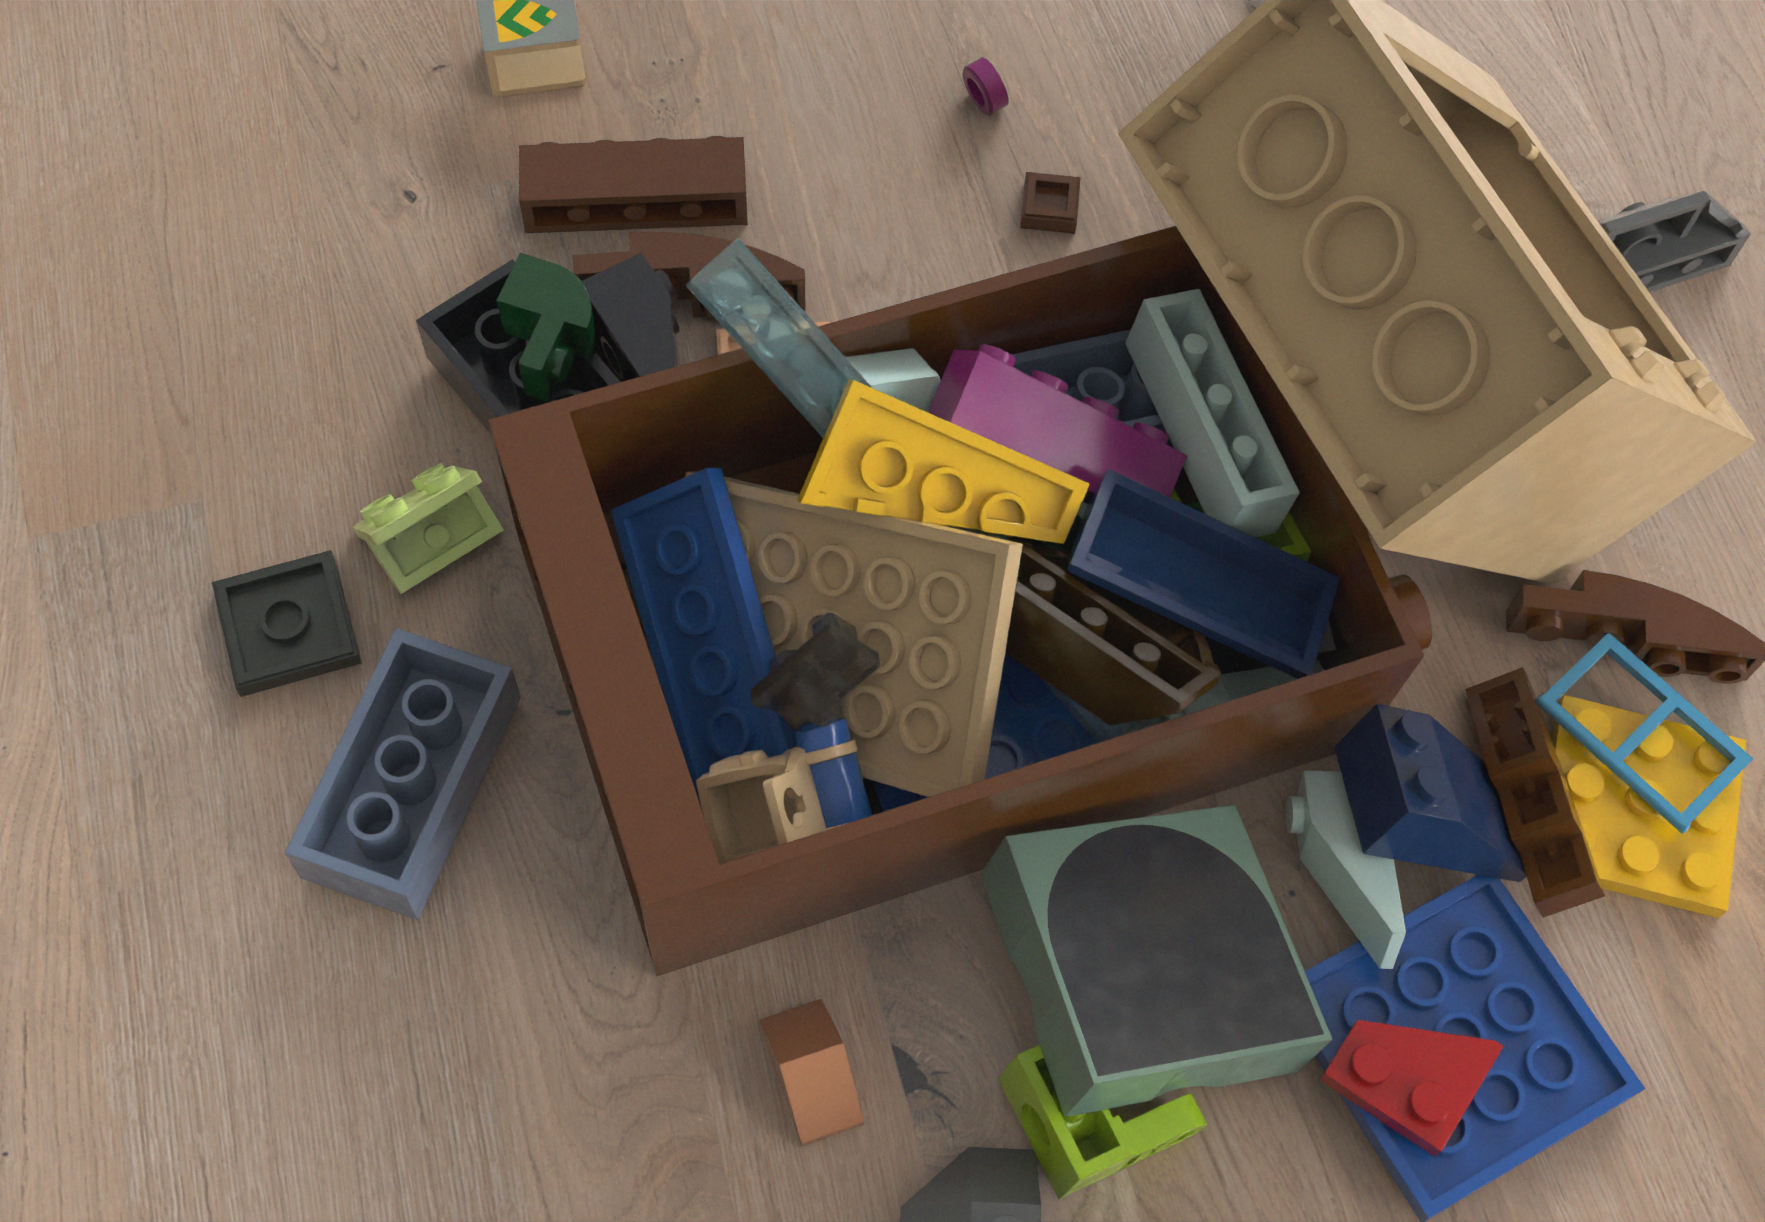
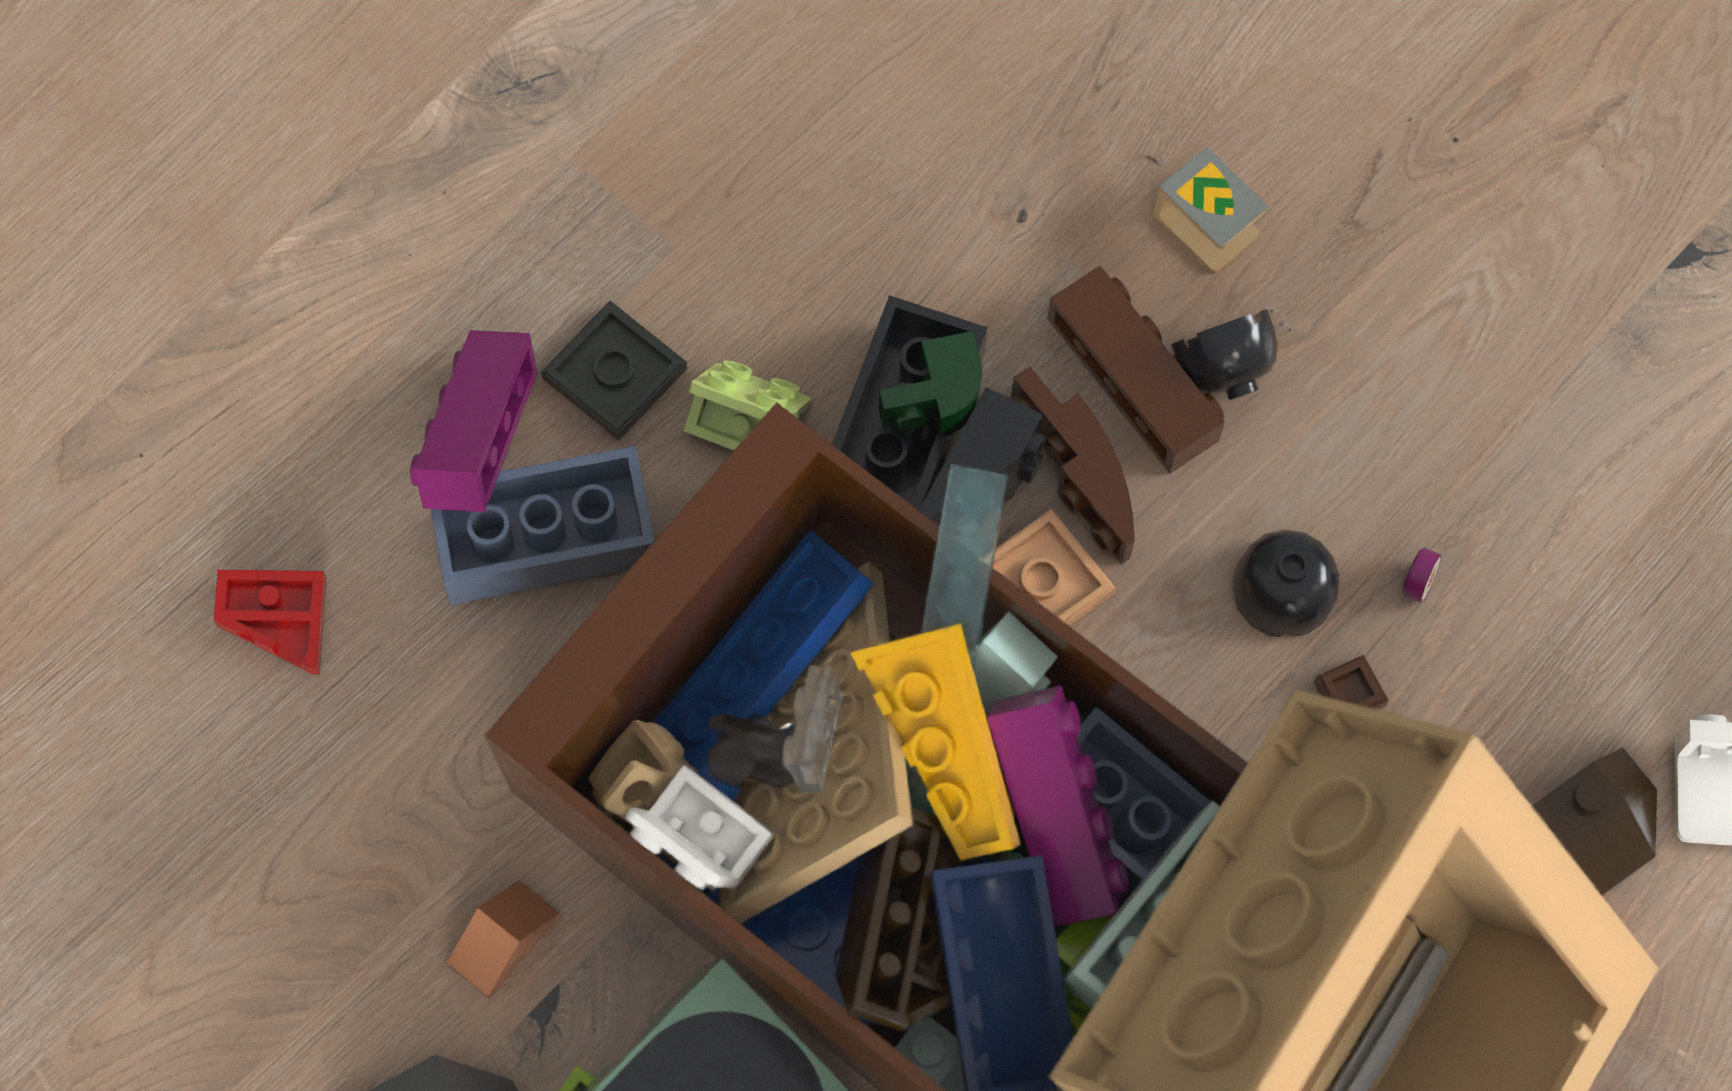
camera: 60 degrees right, 5 degrees up
(252, 765) = (474, 421): none -> magenta brick
(296, 1104) = (275, 612): none -> red wing
(681, 97) = (1230, 355): none -> black cylinder
(865, 610) = (817, 716): none -> clear plate
(875, 759) = (702, 830): none -> white bracket
(919, 189) = (1286, 583): none -> black cylinder

